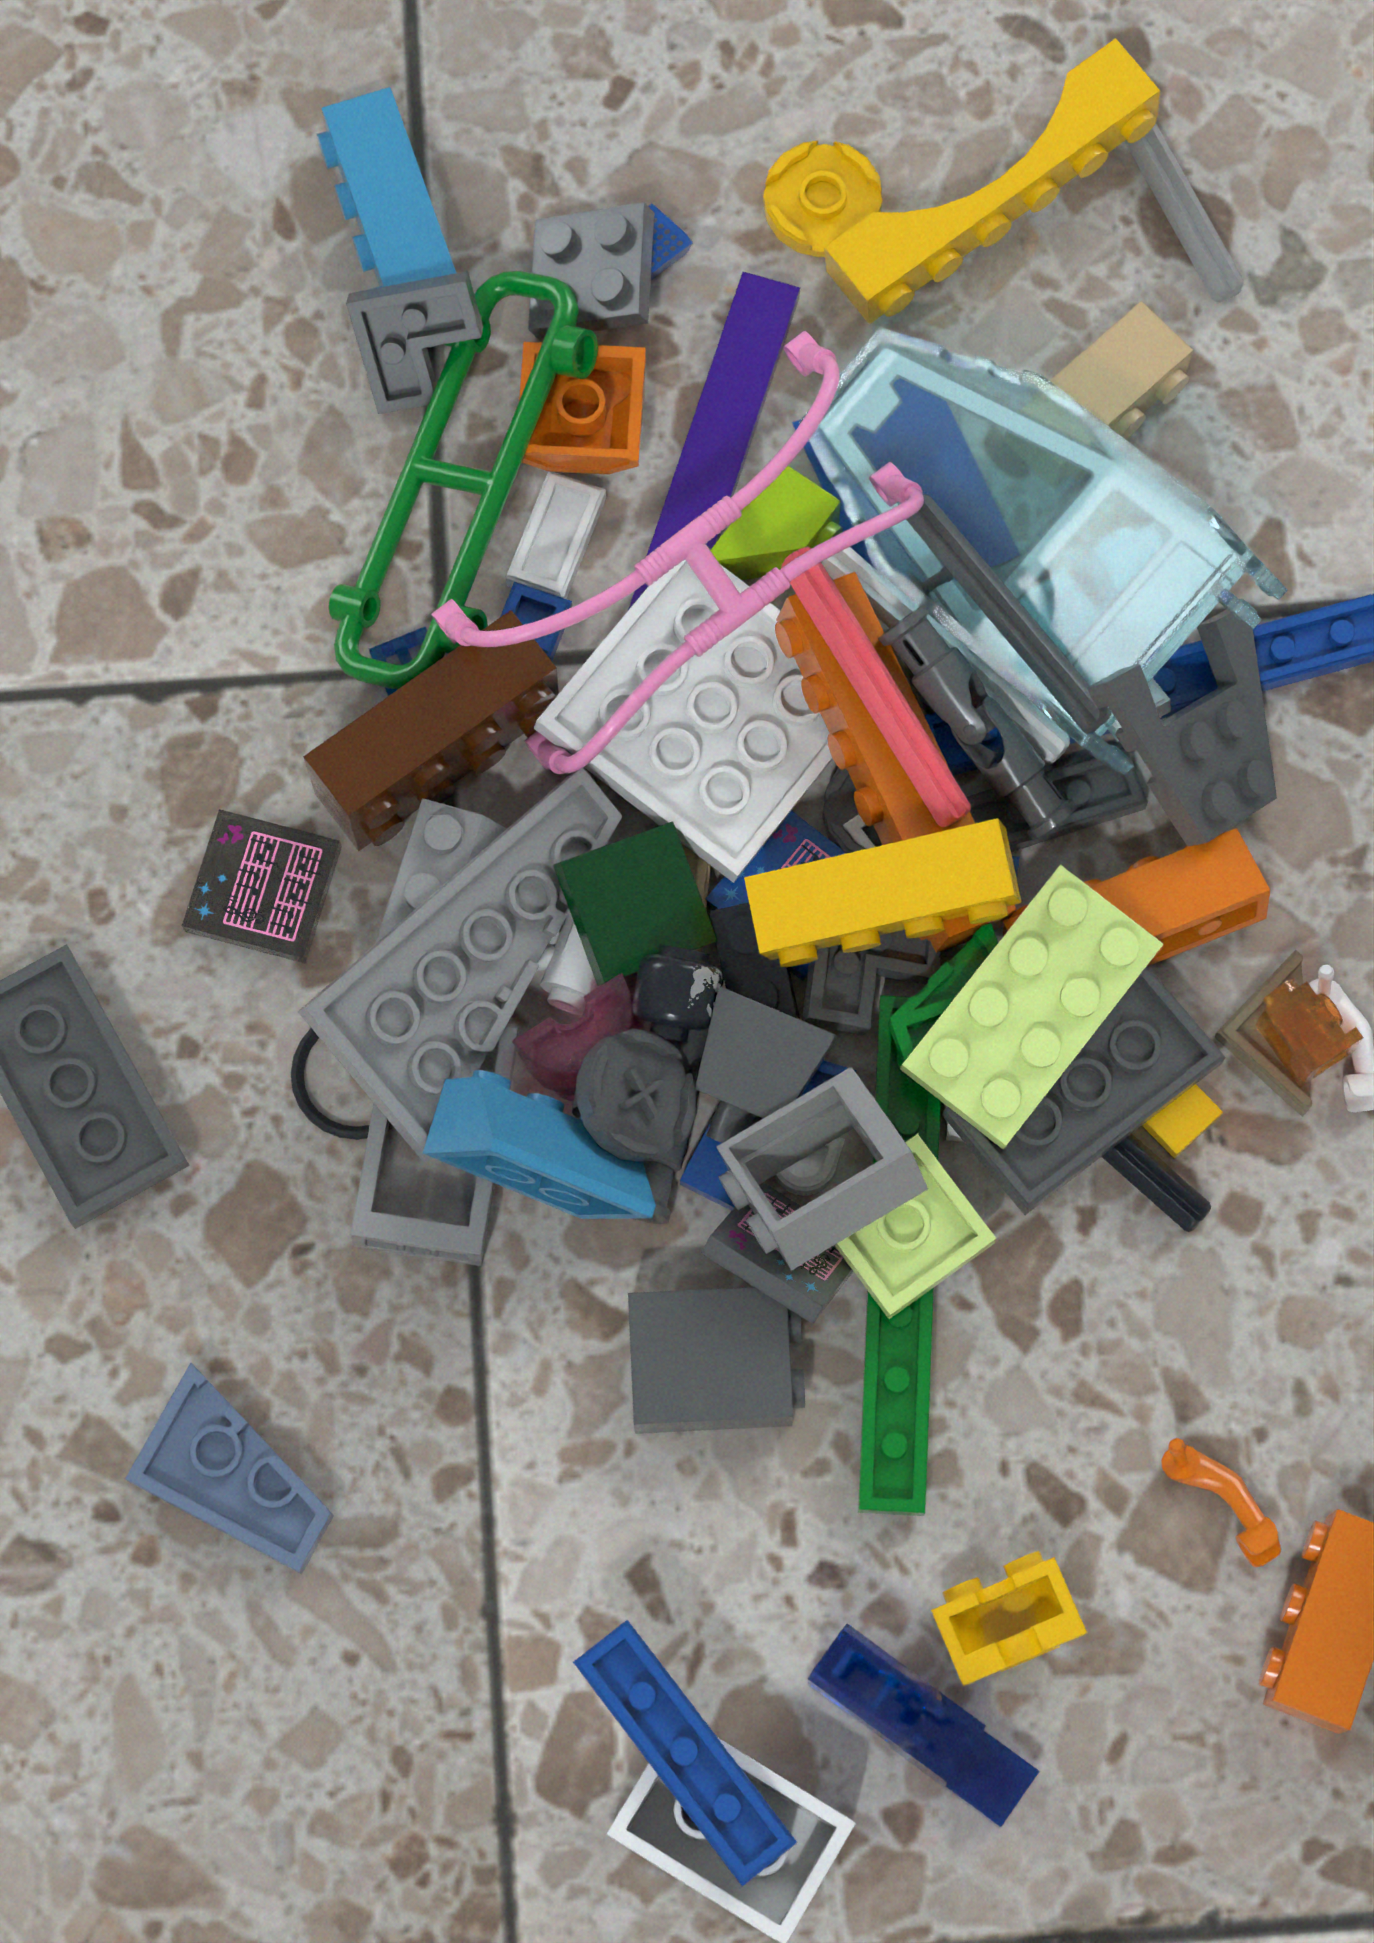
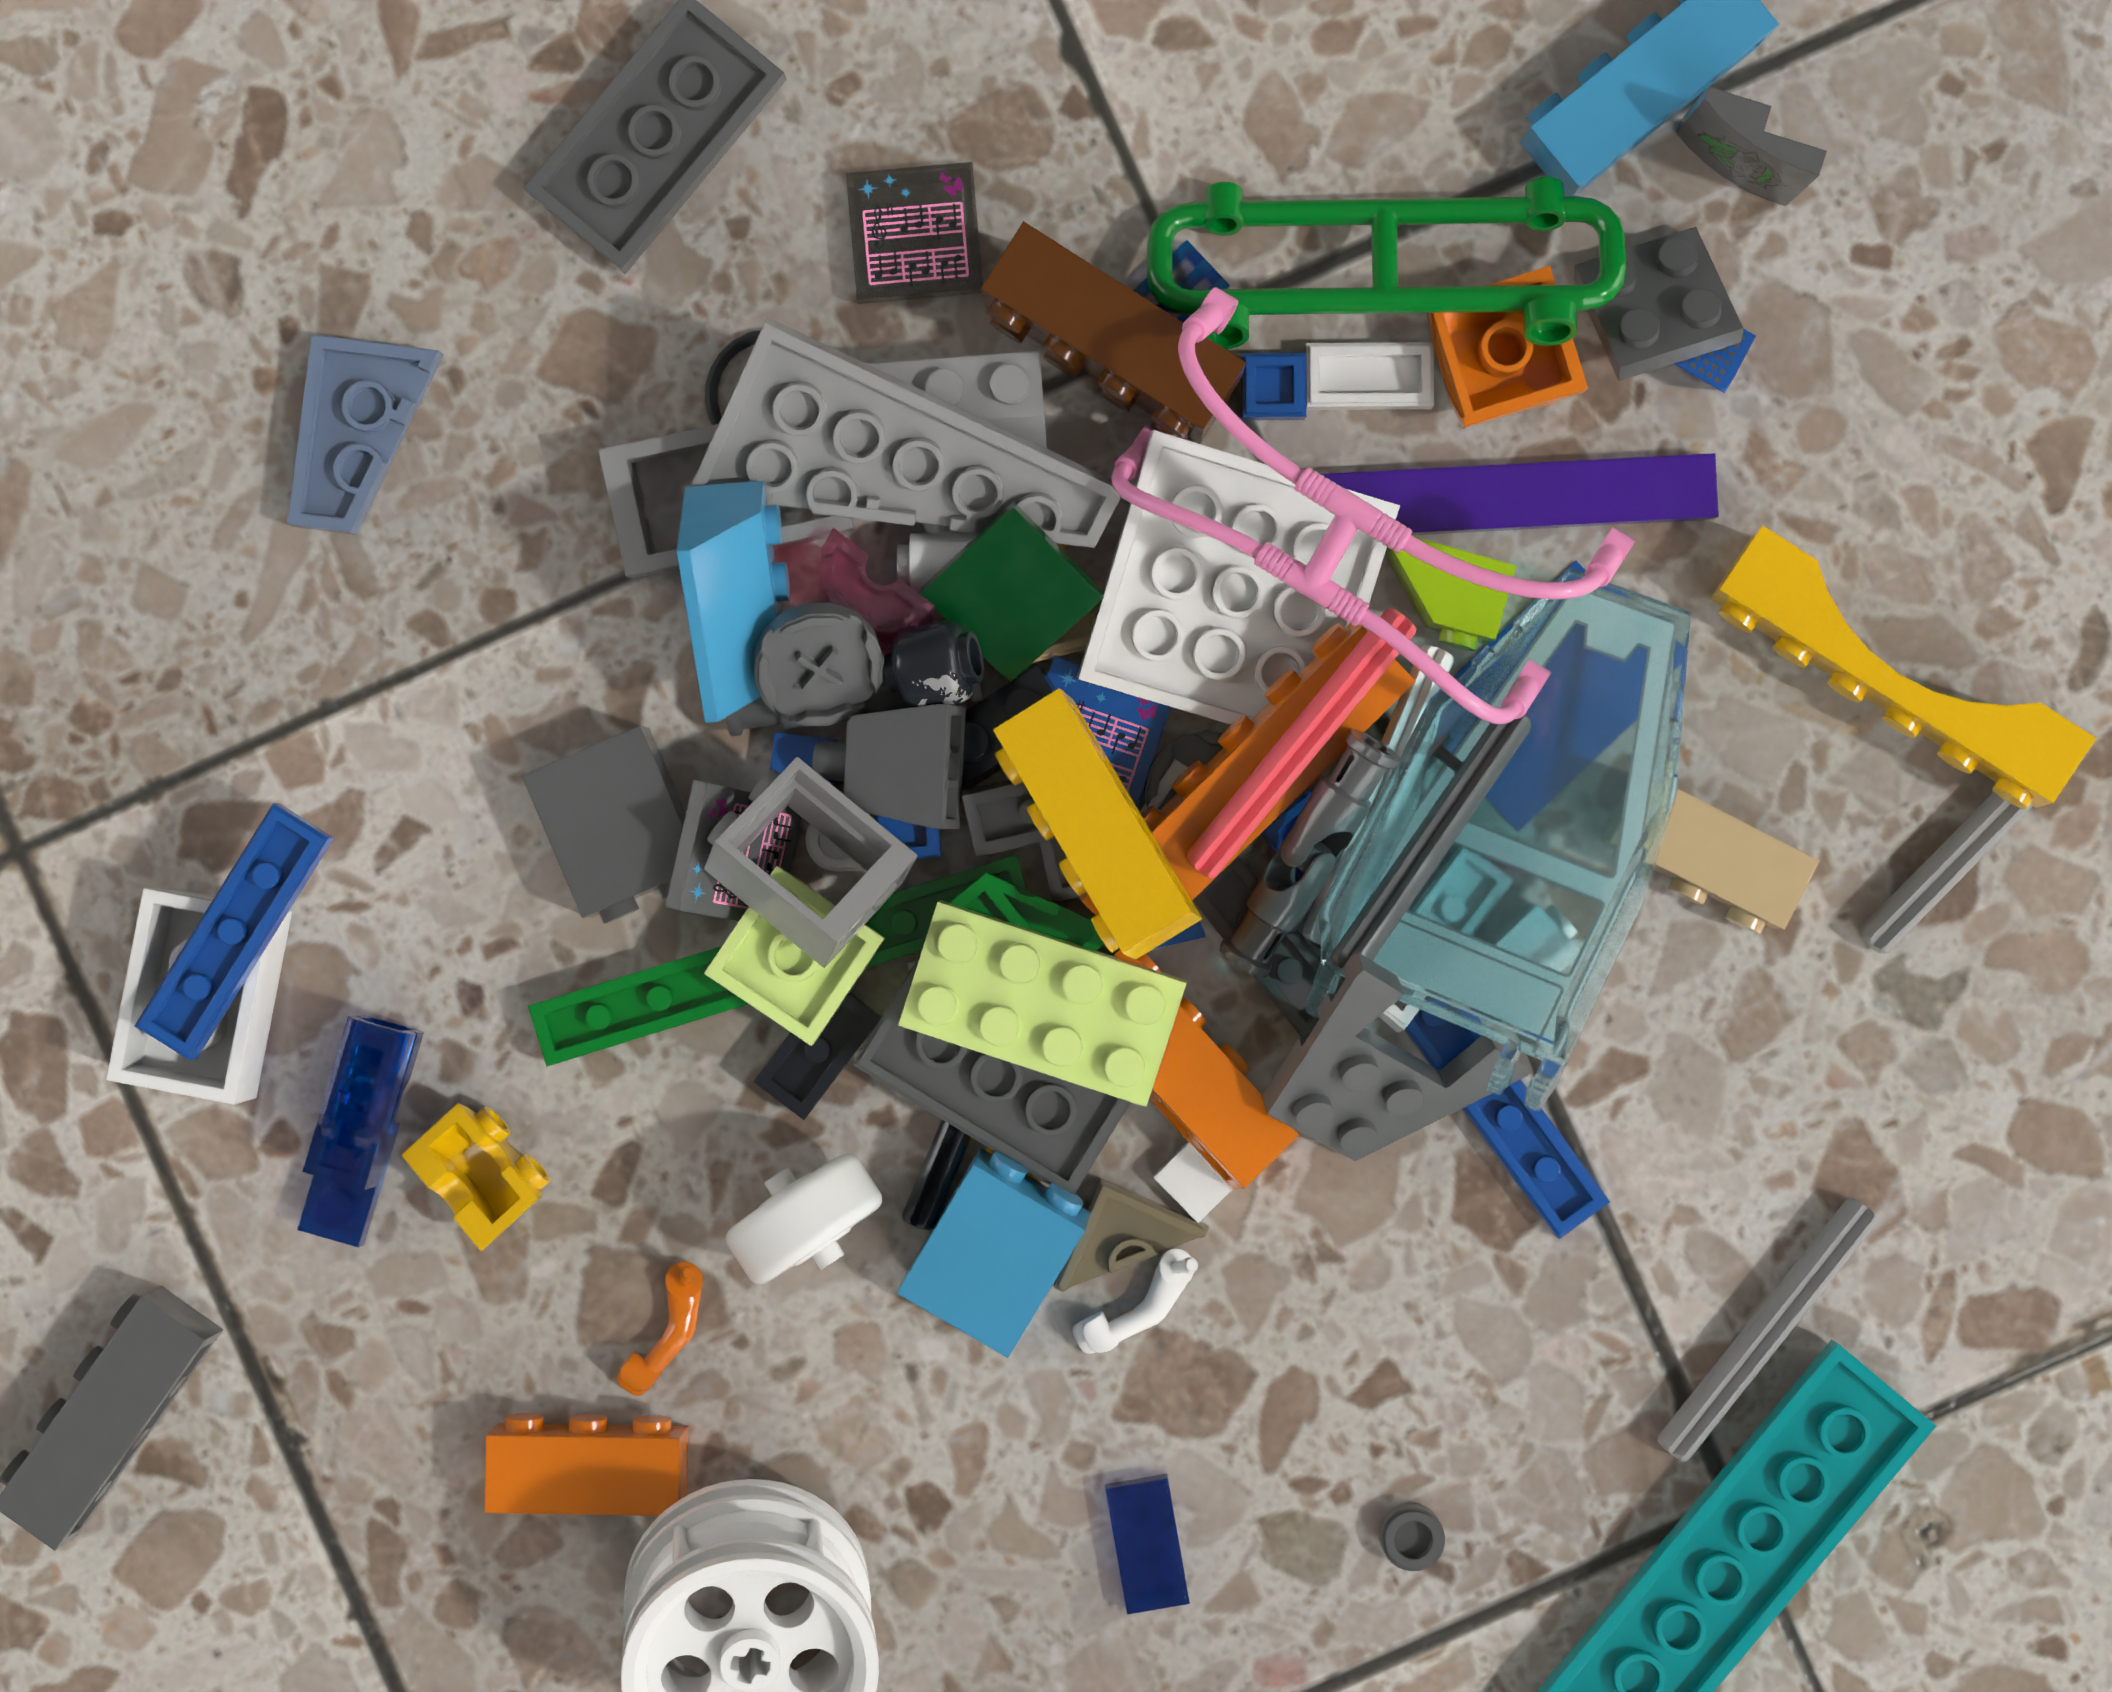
camera: 70 degrees right, 15 degrees up
(397, 327) = (1515, 139): dark grey plate -> none
(483, 153) = (1731, 140): none -> dark grey slope
(819, 194) = (1829, 501): yellow tile -> none
(1015, 1266) = (802, 1072): none -> black plate
(1161, 1306) = (803, 1218): none -> white wheel
(1246, 951) = (1192, 1182): none -> white tile
(1252, 1146) = (995, 1251): none -> dark azure brick
(1305, 1030) = (1122, 1265): clear orange brick -> none

